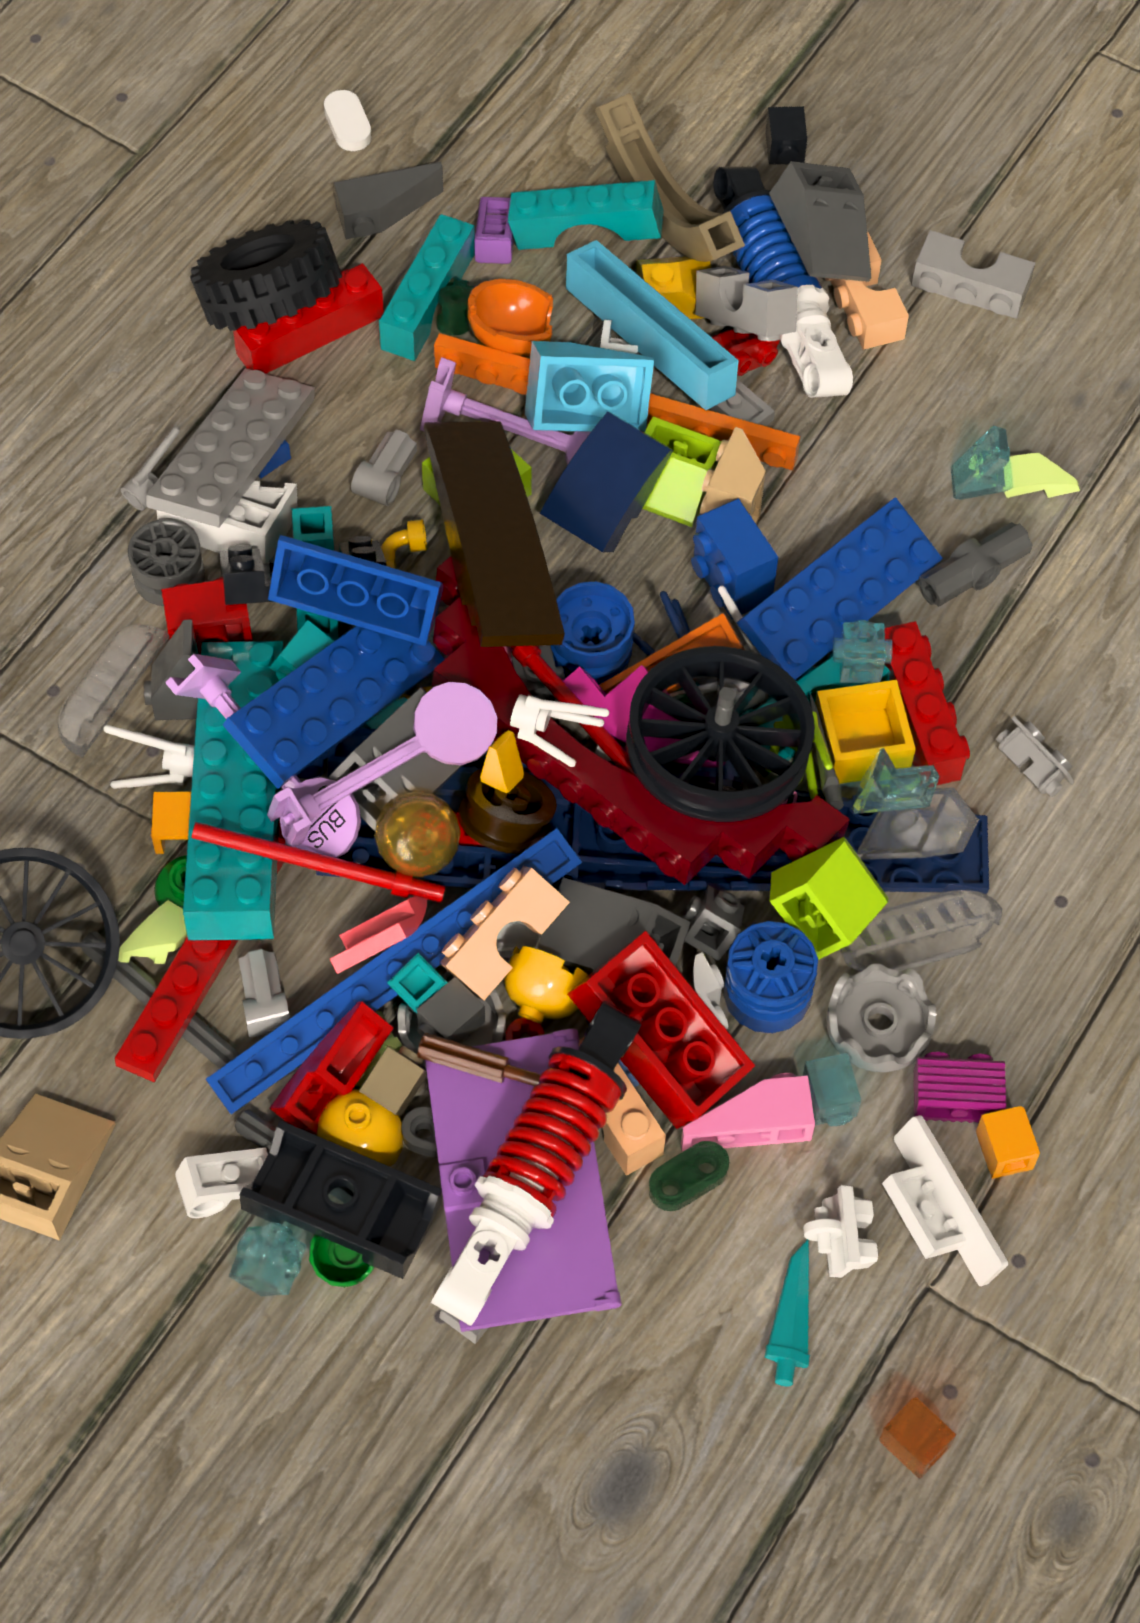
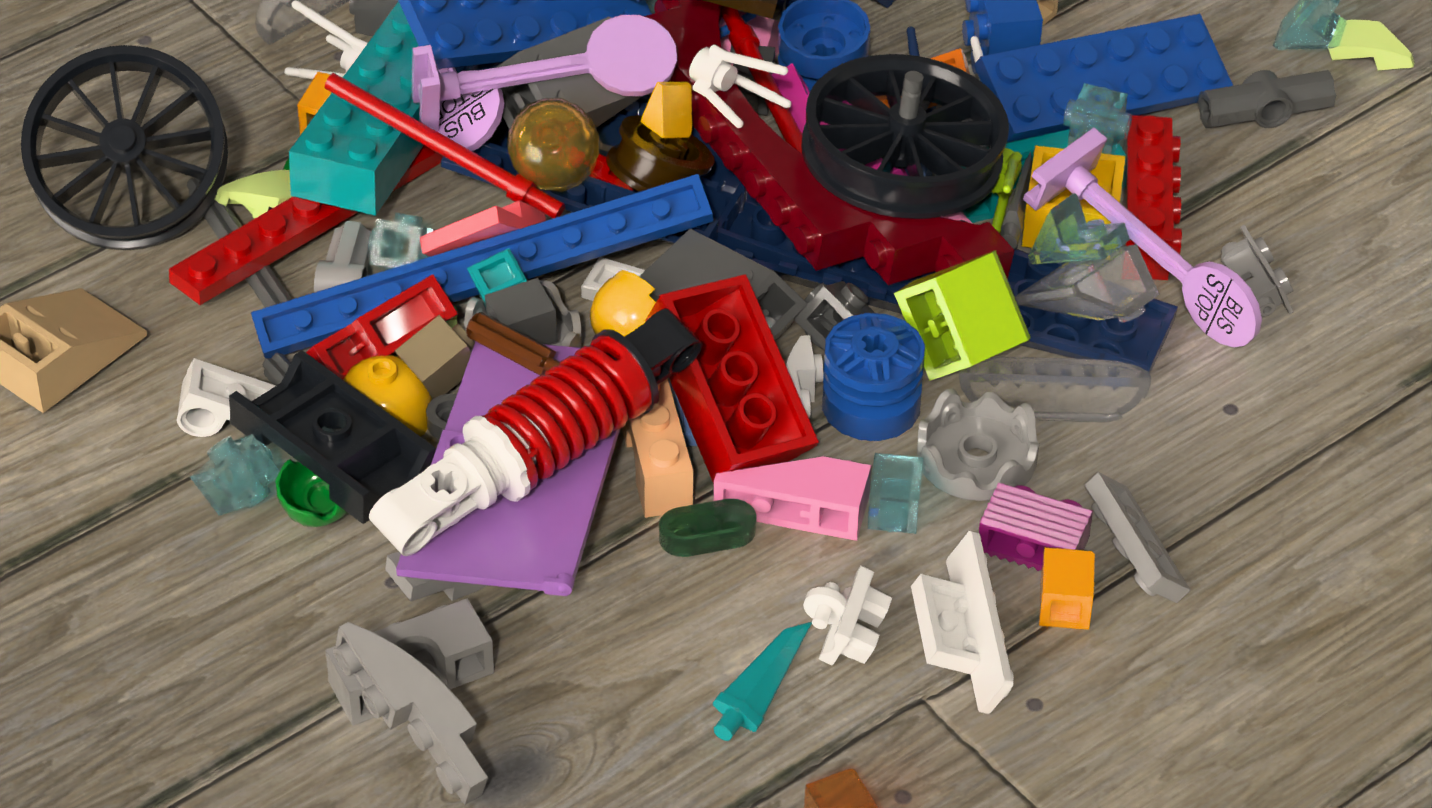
camera: 20 degrees right, 15 degrees down
(303, 974) = (388, 239): none -> clear light blue brick
(475, 955) = (634, 224): light nougat arch -> none
(519, 1453) = (406, 690): none -> light grey slope
(522, 1373) = (444, 640): none -> light grey arch
(1013, 802) = (1212, 292): none -> lavender piece
(1042, 1070) = (1136, 538): none -> light grey plate

